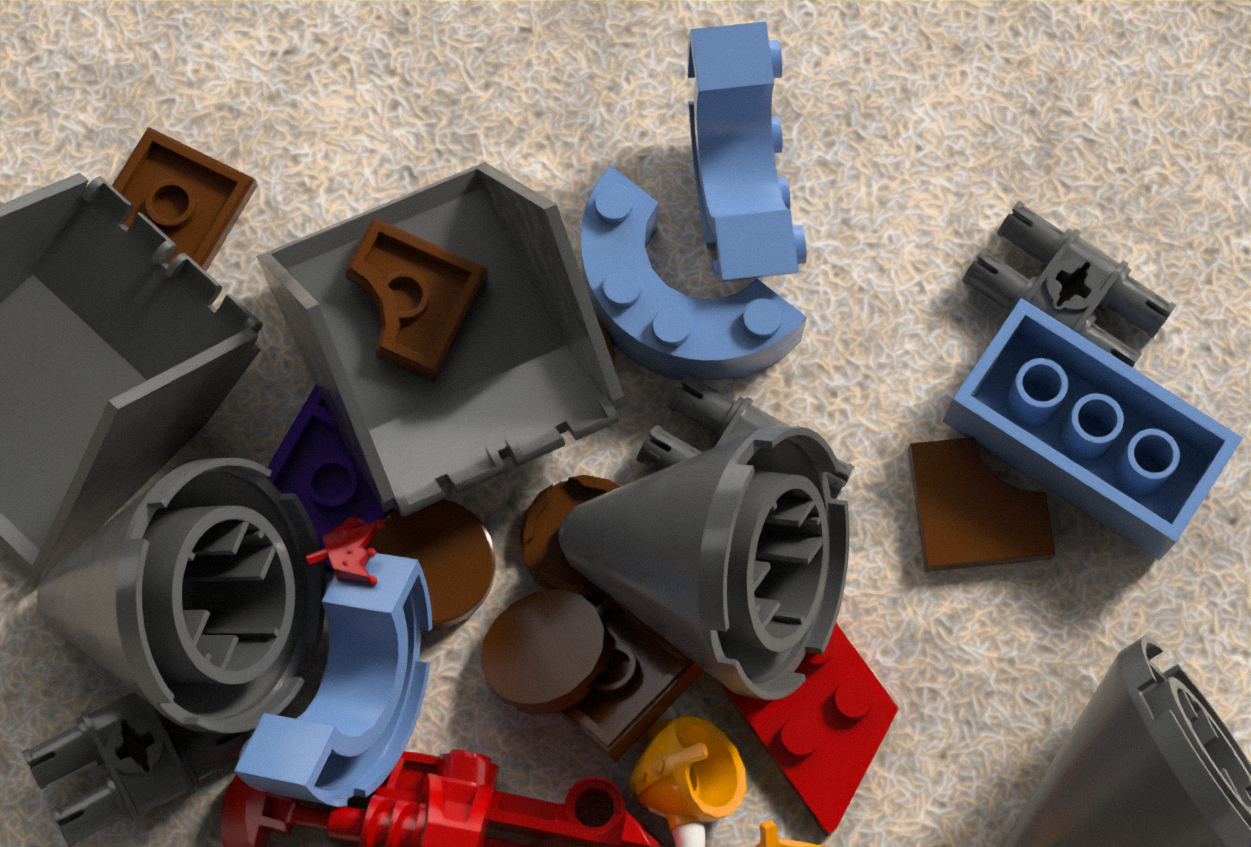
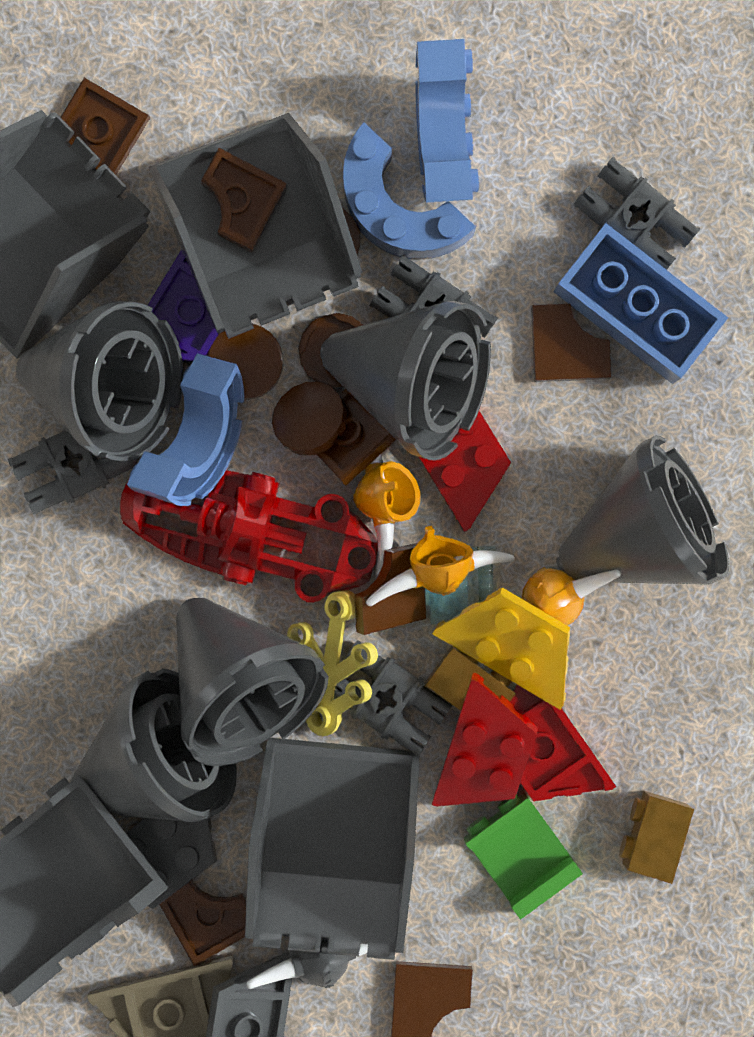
camera: 10 degrees right, 15 degrees up
(347, 550) = (195, 354): red piece -> none

